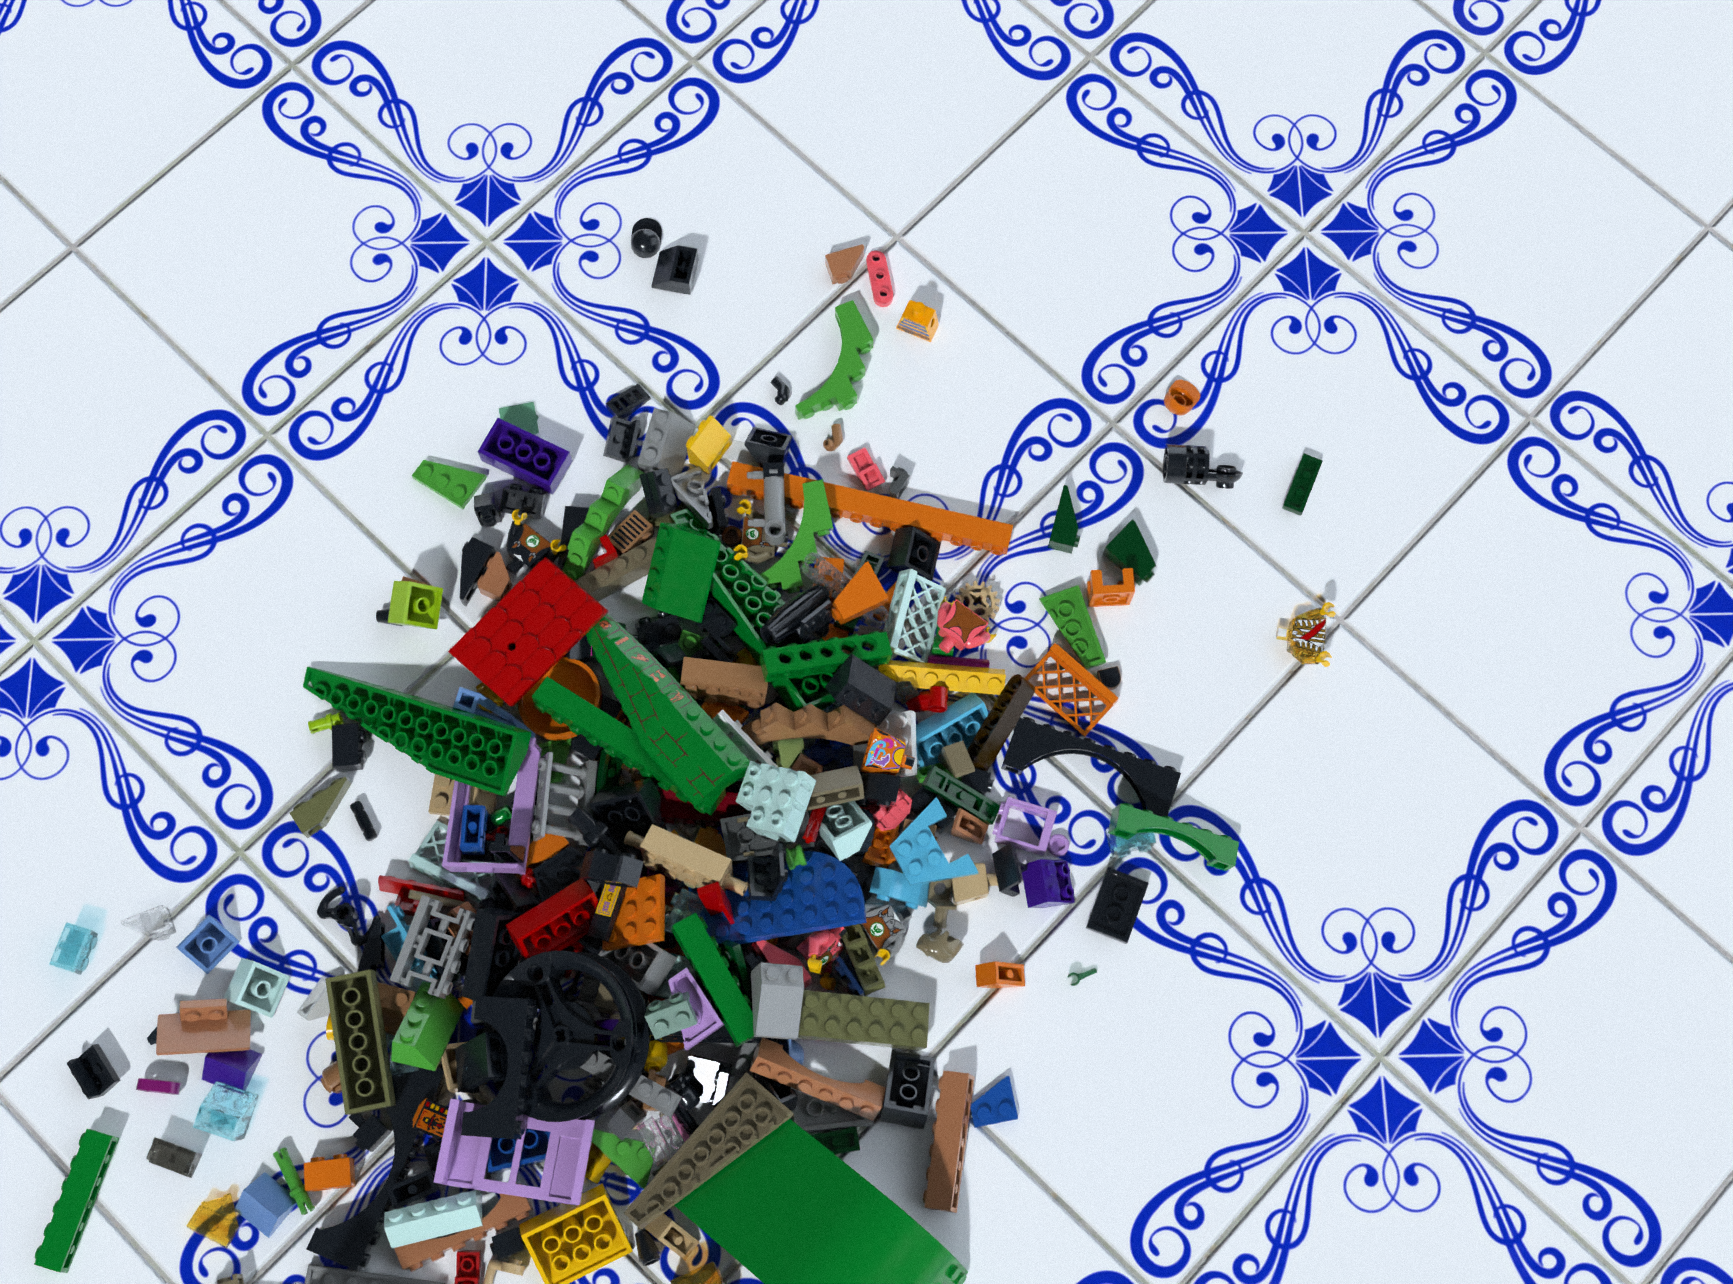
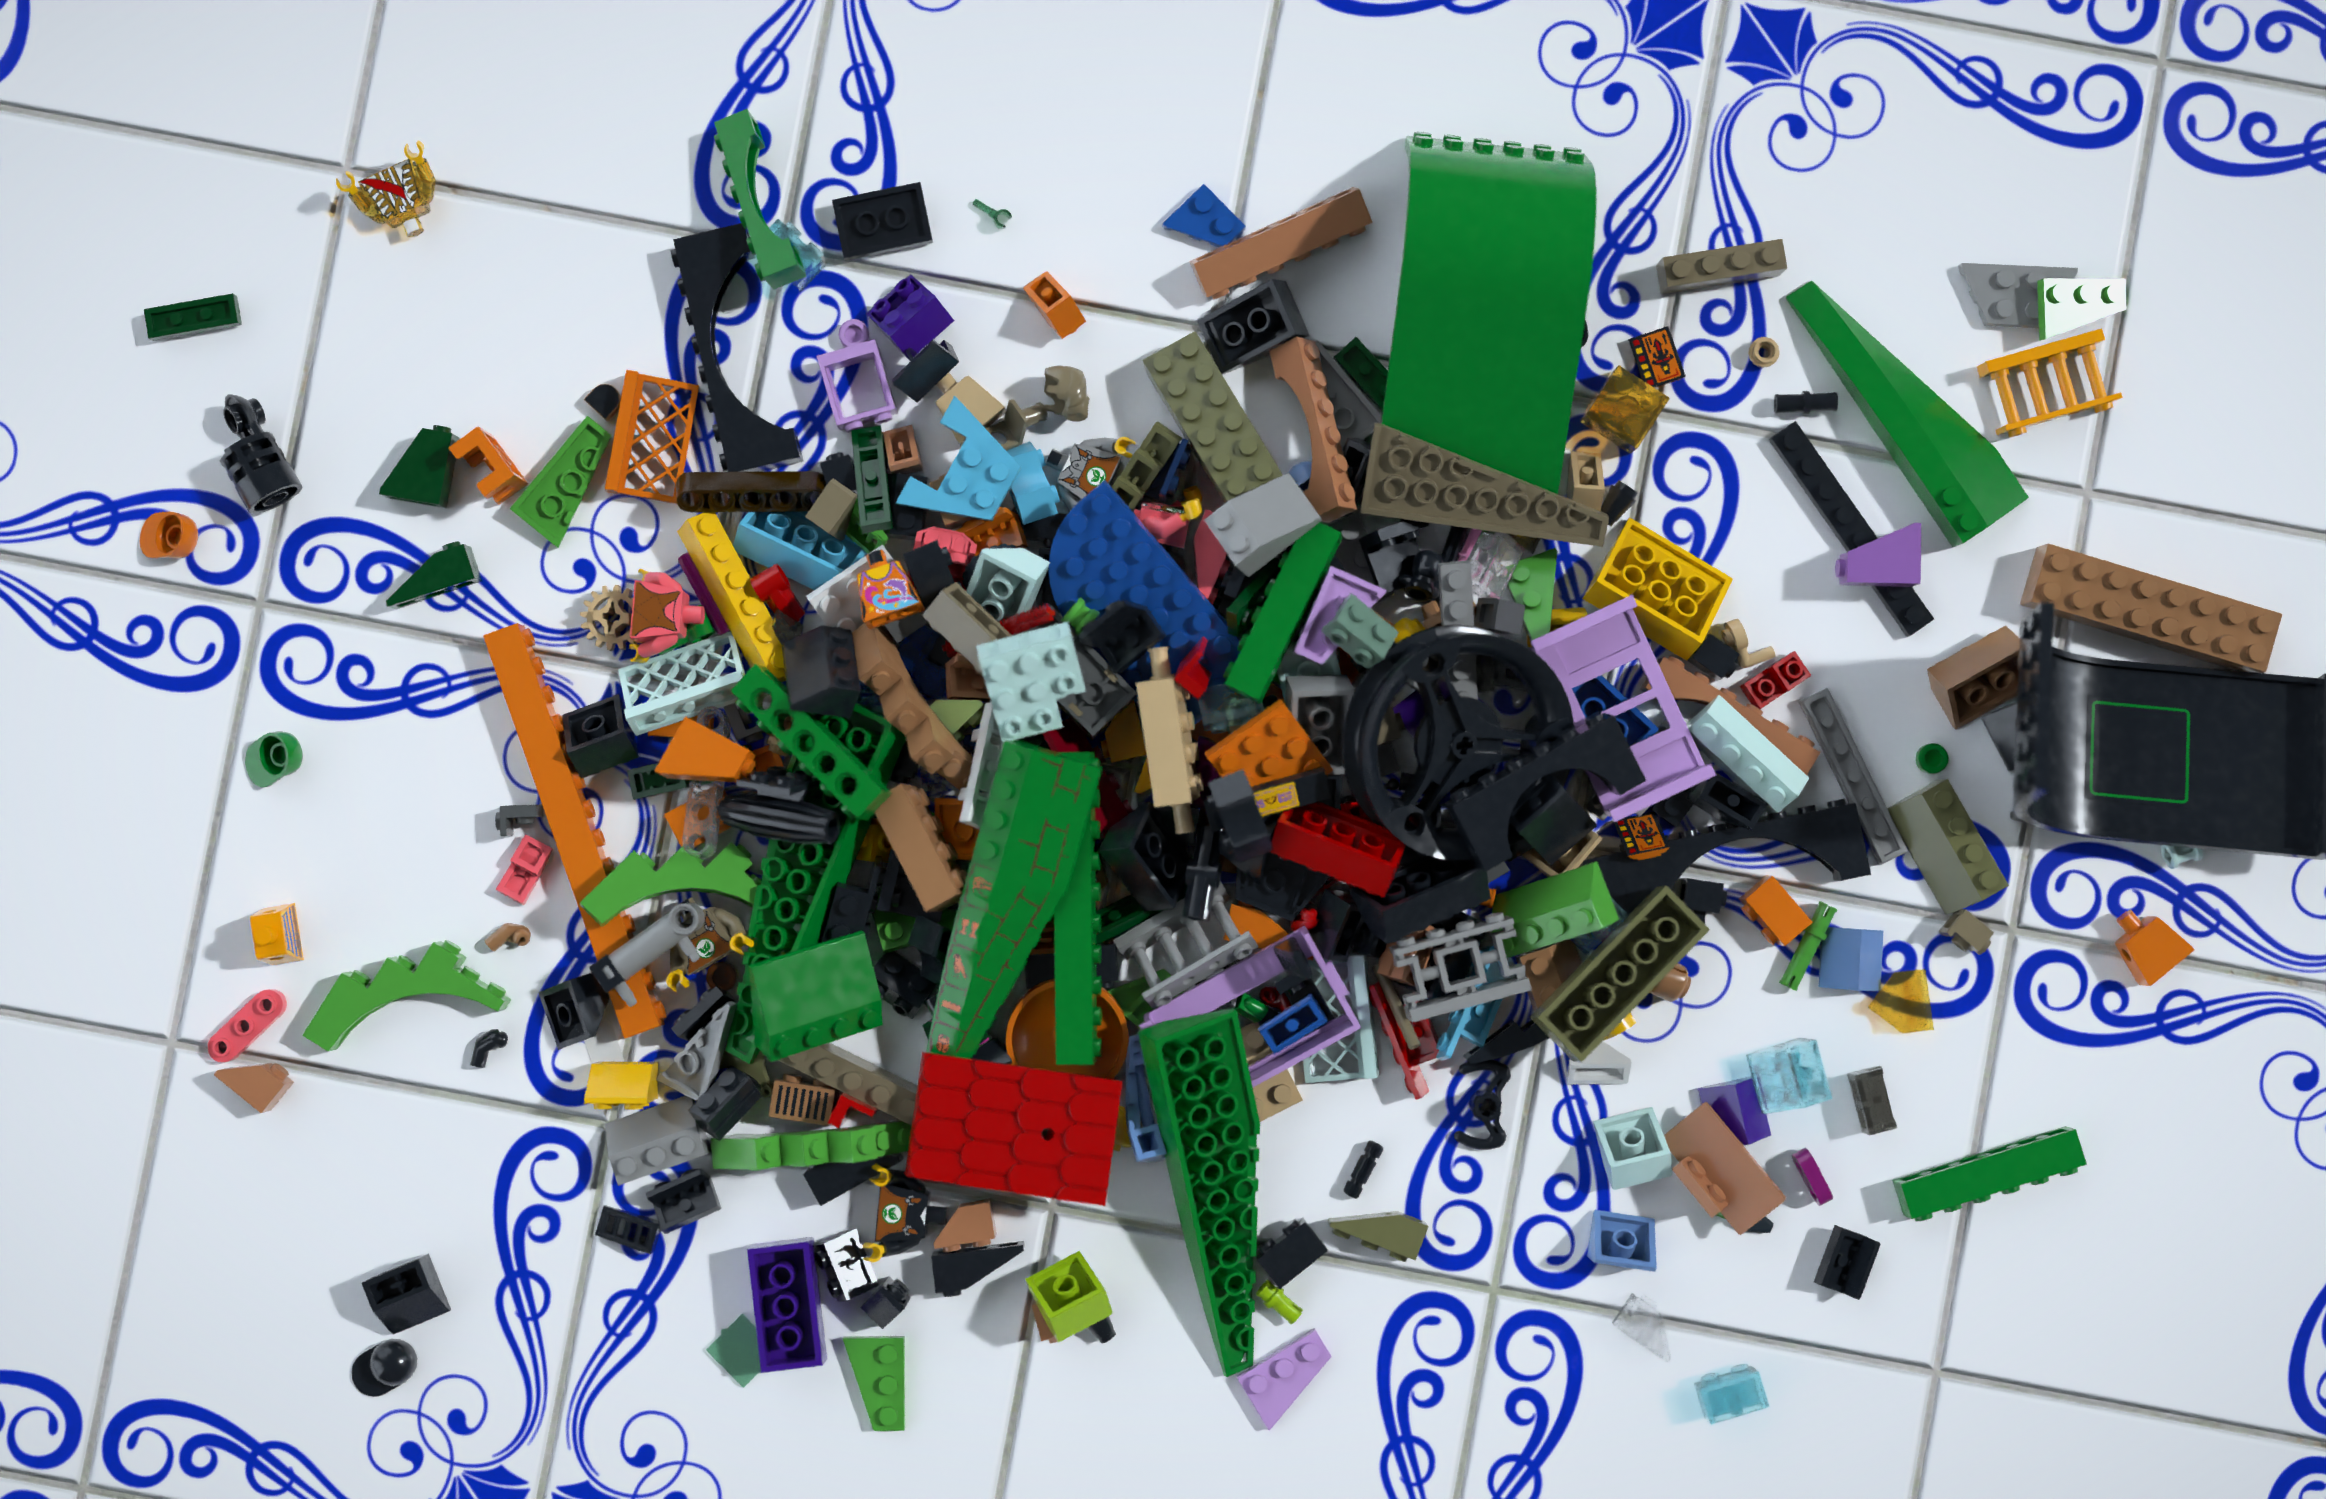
camera: 125 degrees left, 15 degrees up
(283, 699) = (1283, 1376): none -> lavender wing
(1018, 377) = (273, 758): none -> green cap

